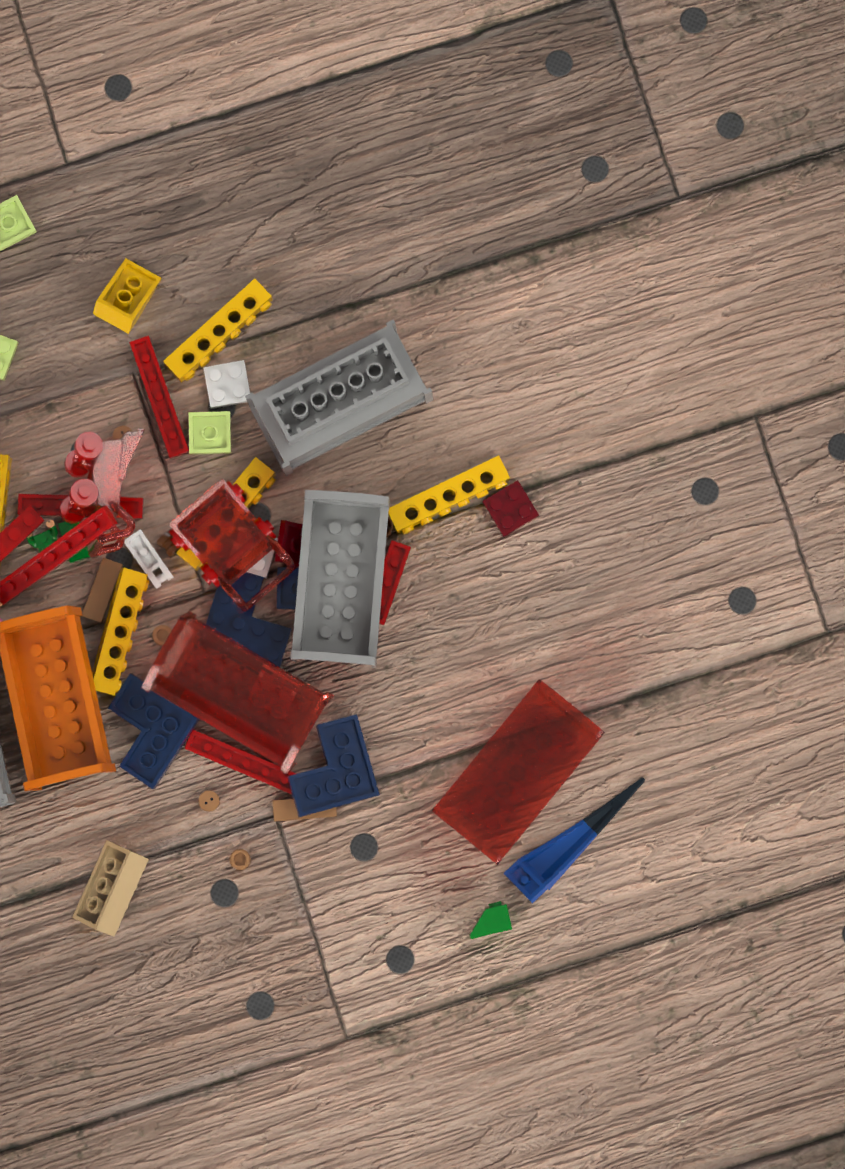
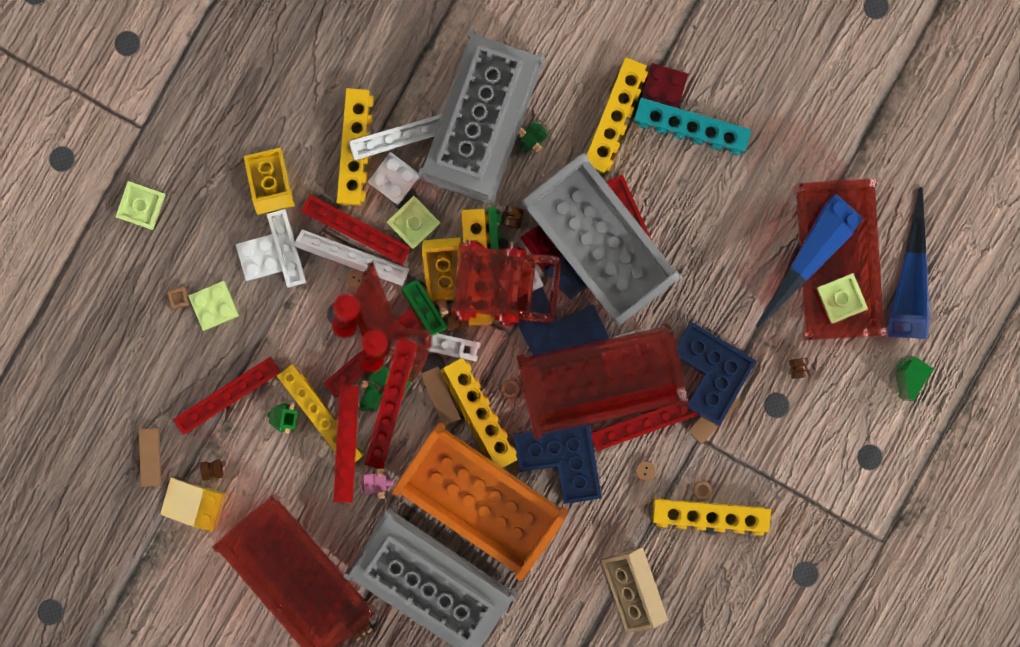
camera: 45 degrees left, 5 degrees up
(63, 349) = (259, 257): none -> white plate
(90, 361) = (285, 248): none -> white plate
(135, 414) = (350, 256): none -> white plate
(153, 507) = (423, 308): none -> green plate
(167, 519) = (442, 308): none -> medium nougat tile
(196, 480) = (440, 267): none -> yellow slope
(254, 351) = (394, 137): none -> white plate
(264, 502) = (495, 235): none -> green plate
(267, 921) = (760, 525): none -> yellow brick
(292, 500) = (511, 221): none -> reddish brown wheel
(367, 451) = (533, 137): none -> green piece
(409, 832) = (799, 368): none -> reddish brown wheel
(479, 511) = (740, 134): none -> teal brick
(491, 805) = (842, 298): none -> yellowish green plate
(532, 741) = (829, 232): none -> blue plate

